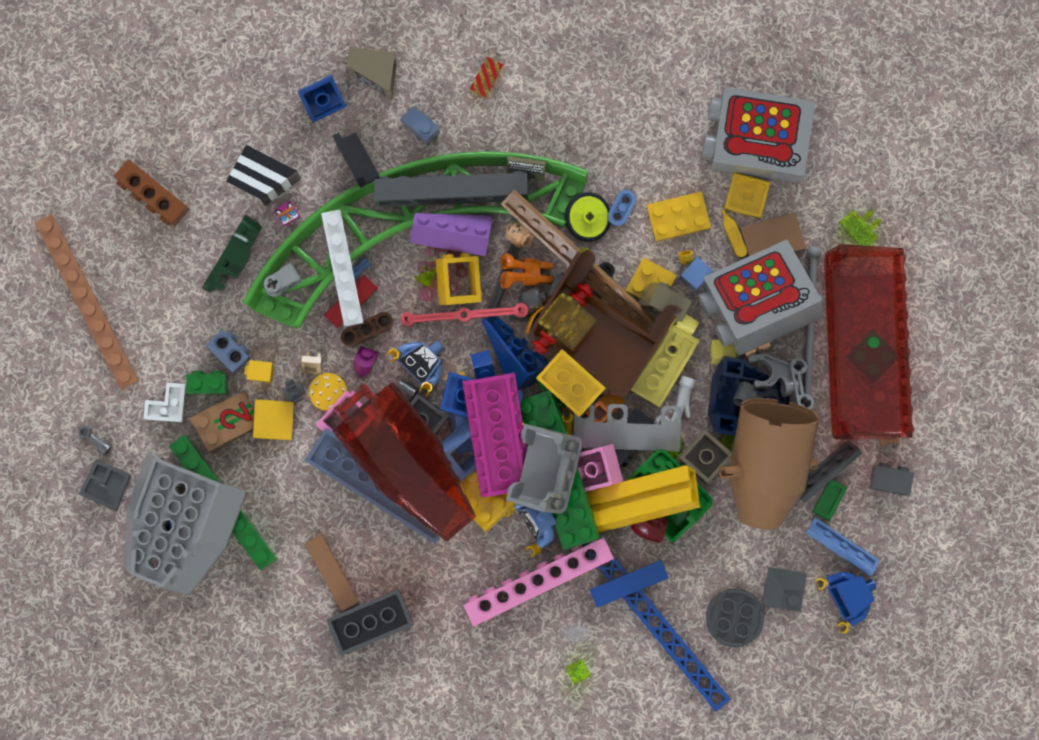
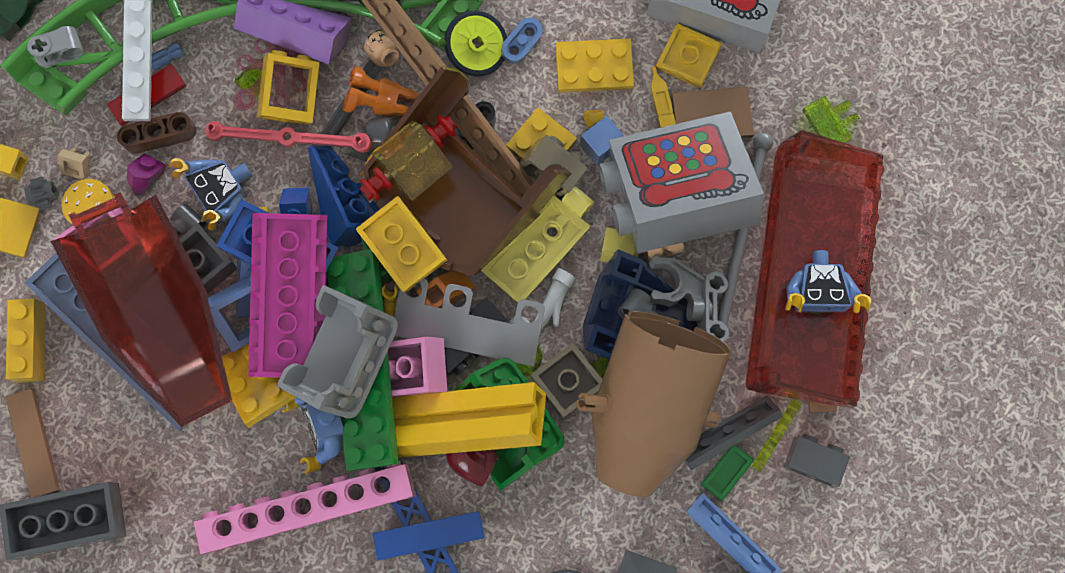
camera: 10 degrees right, 5 degrees down
(310, 500) = (25, 340): none -> yellow brick
(860, 466) = (776, 435): none -> clear neon green bar
(876, 355) = (824, 288): none -> torso

